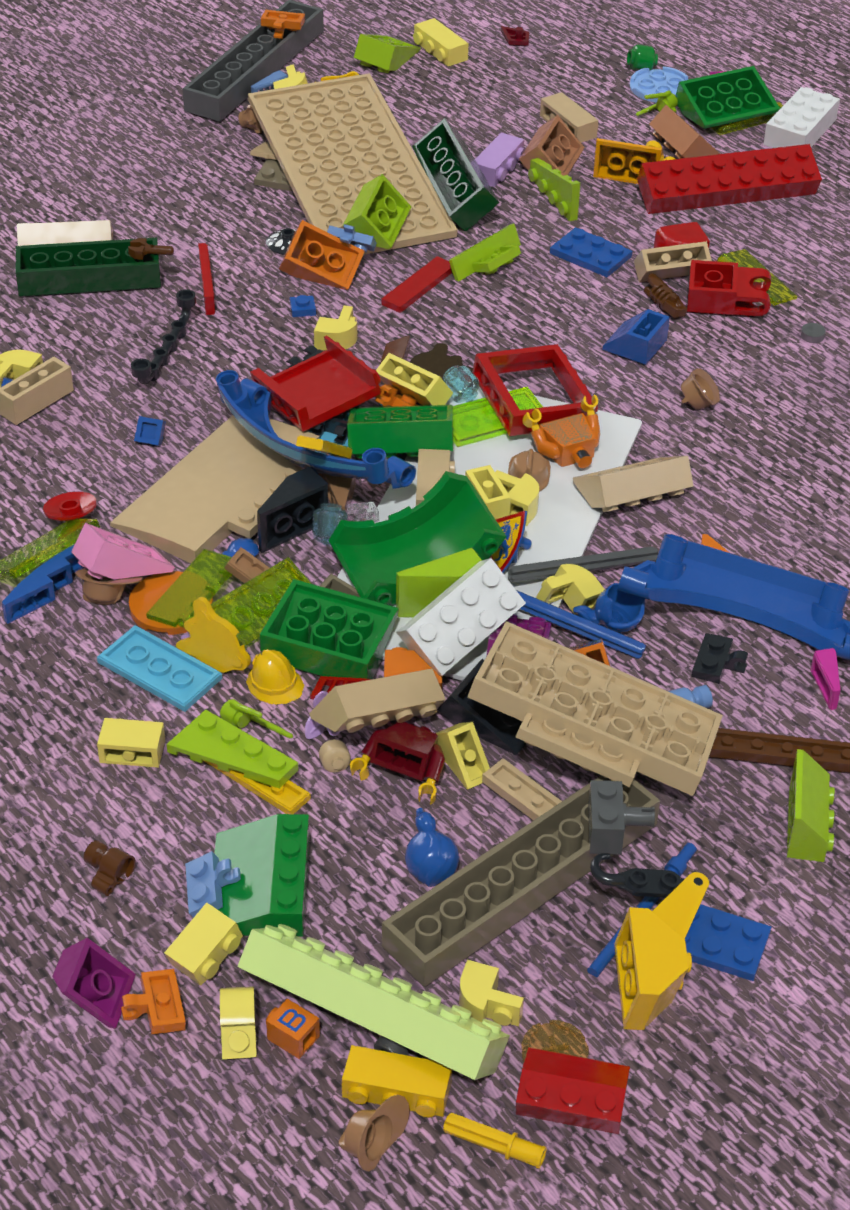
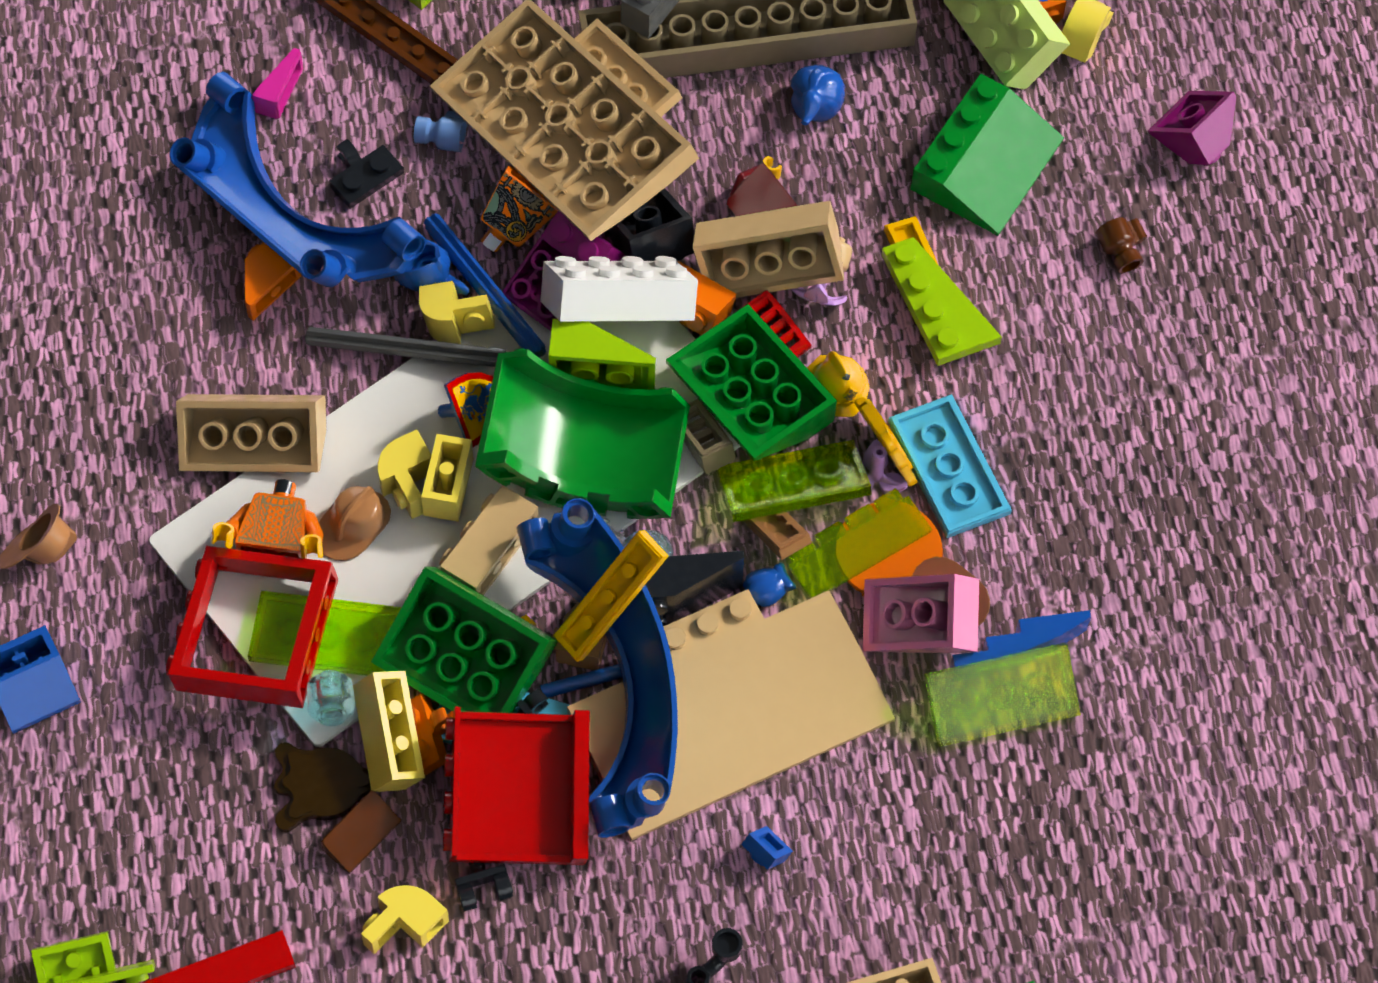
camera: 150 degrees left, 20 degrees up
(69, 506) = (943, 739): red dish -> none
(131, 742) = (1032, 368): light yellow brick -> none
(159, 1000) = (1142, 82): orange plate -> none
(204, 944) = (1079, 104): light yellow brick -> none
(205, 879) = (1042, 173): medium blue plate -> none
(240, 716) = (905, 352): lime plant -> none
(464, 753) = (709, 189): light yellow slope -> none
(519, 789) = (684, 116): tan plate -> none

